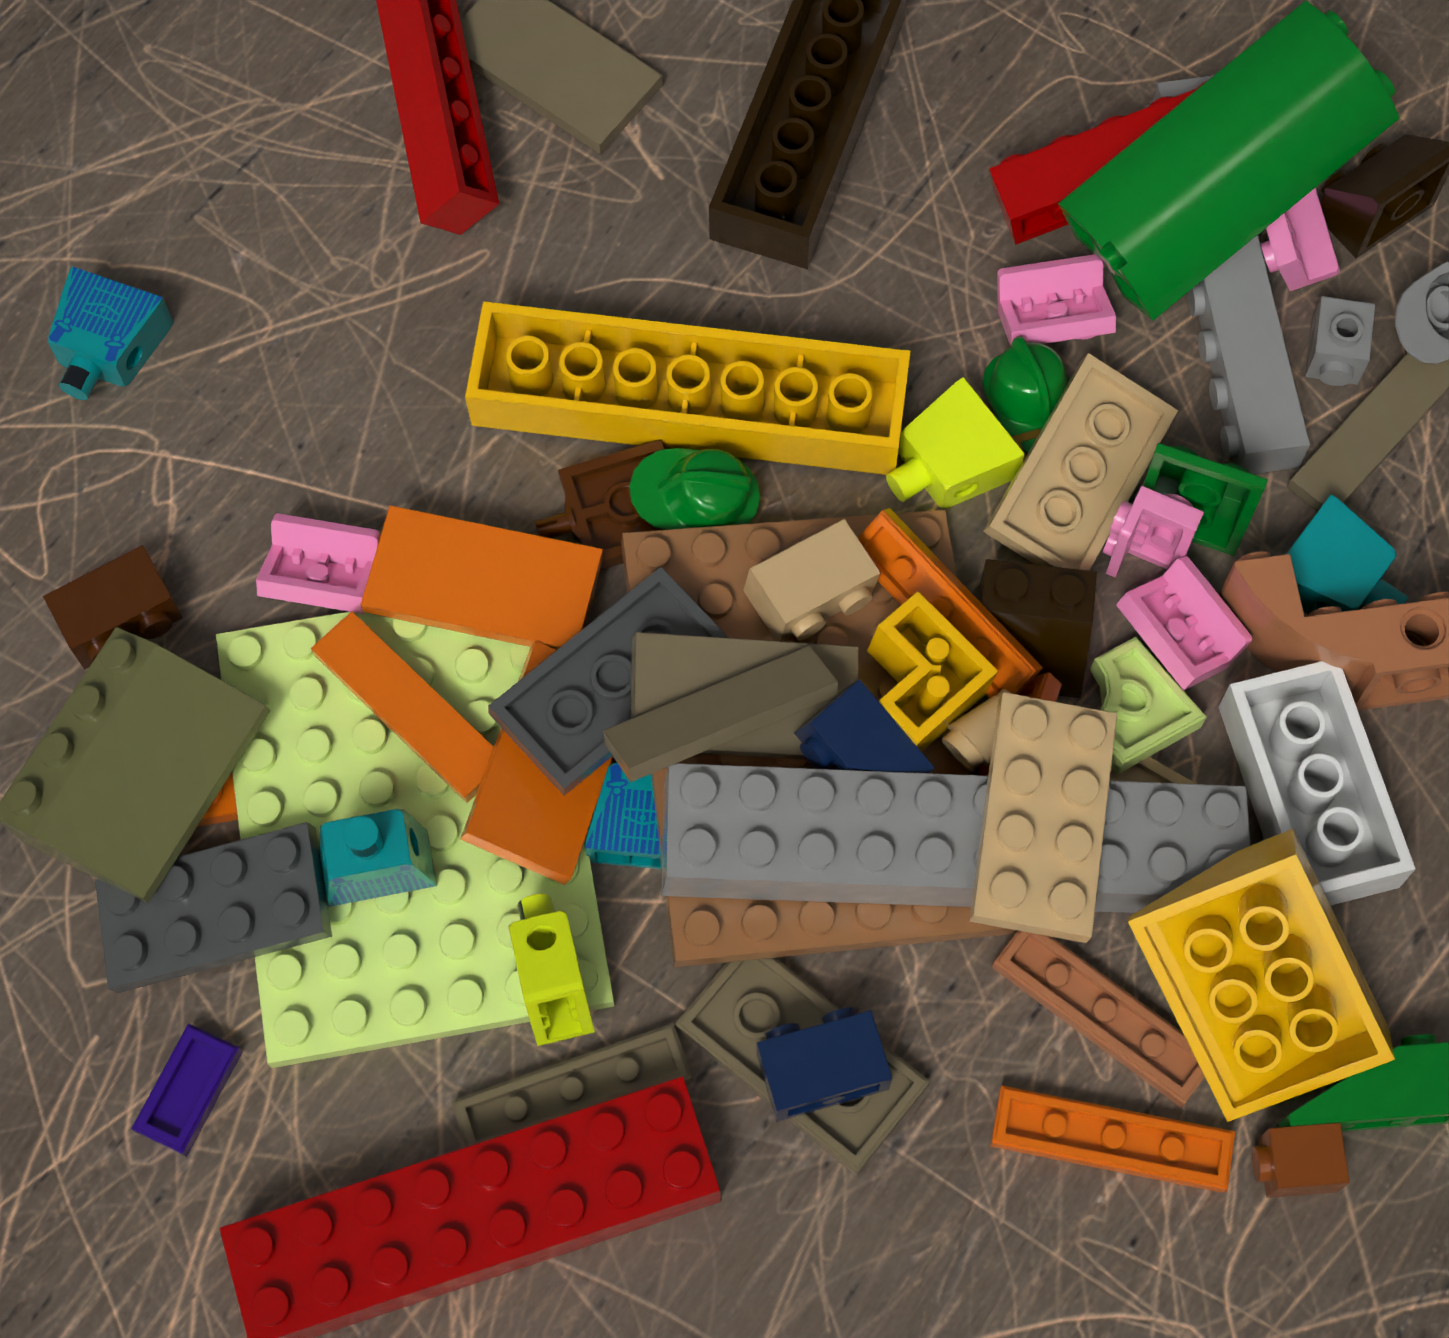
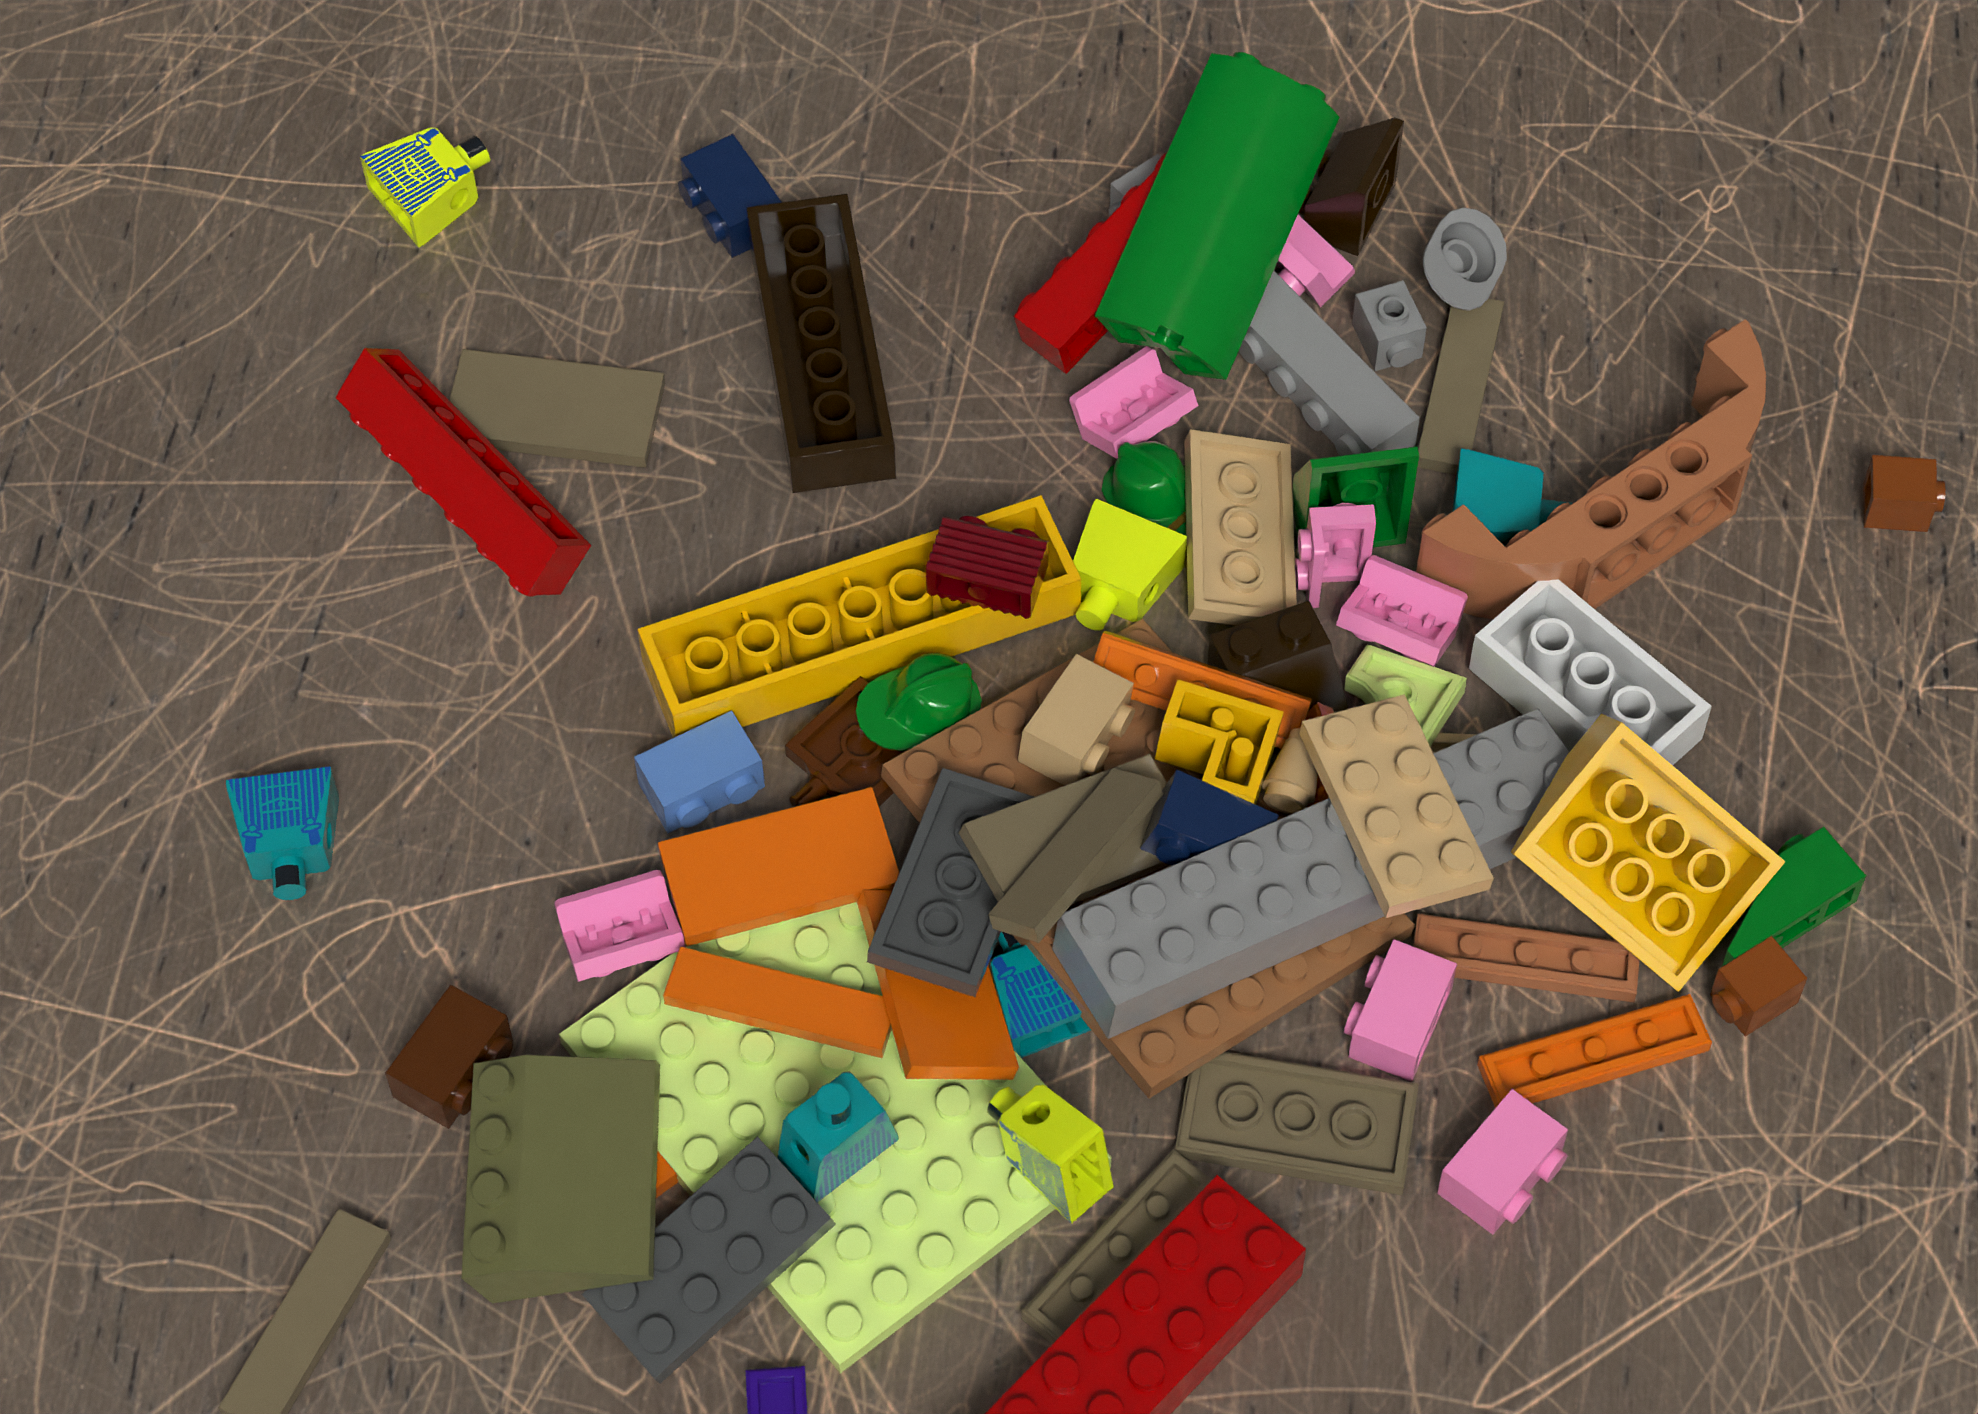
camera: 30 degrees left, 10 degrees down
(472, 458) = (700, 772): none -> medium blue brick
(815, 394) = (987, 566): none -> dark red brick
(823, 1063) = (1325, 1108): dark blue brick -> none
(953, 1002) = (1400, 1010): none -> bright pink brick
(961, 1201) = (1504, 1162): none -> bright pink brick

